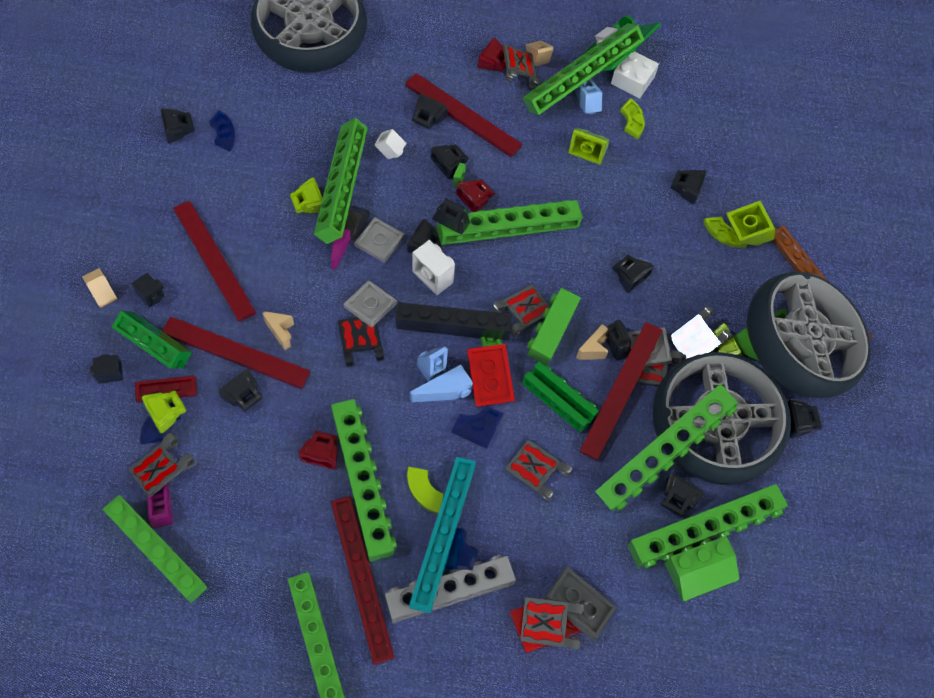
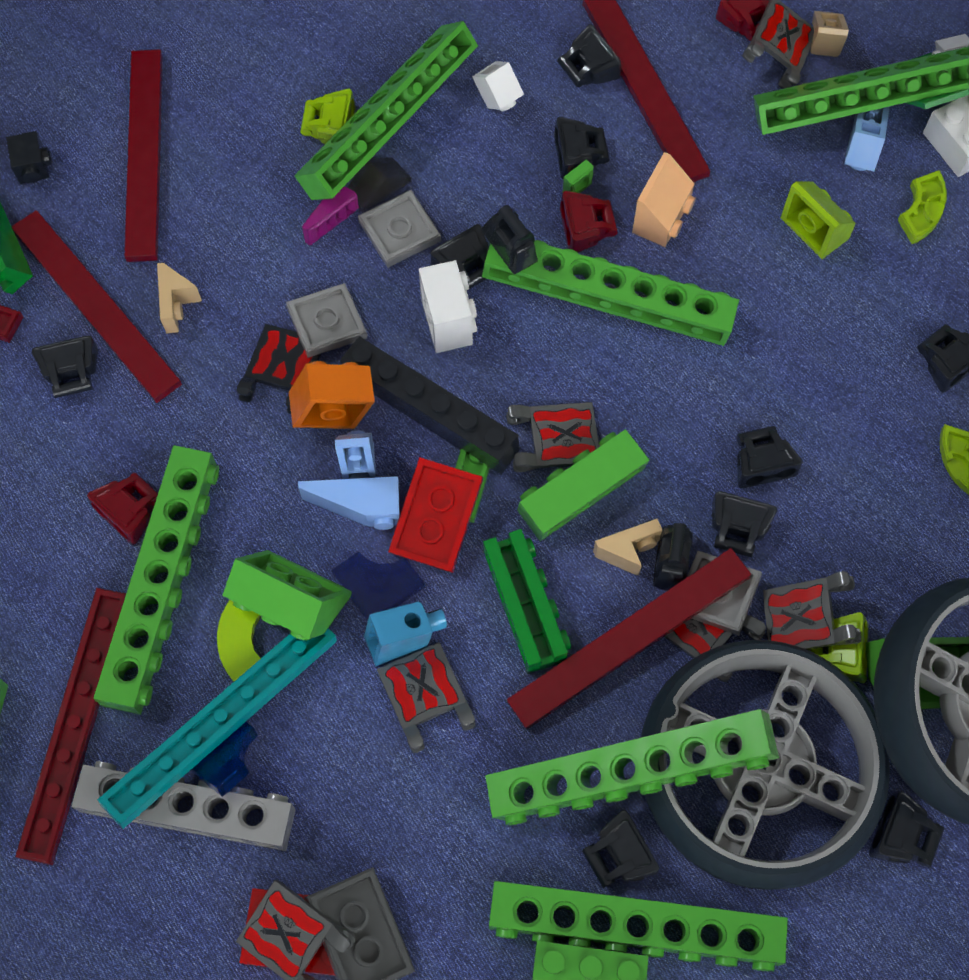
camera: 35 degrees right, 5 degrees up
(402, 339) = (331, 395): none -> orange brick
(438, 452) = (285, 593): none -> bright green slope
(508, 442) = (401, 631): none -> dark azure torso
(511, 168) = (664, 202): none -> light nougat slope
(638, 306) = (741, 518): none -> black piece

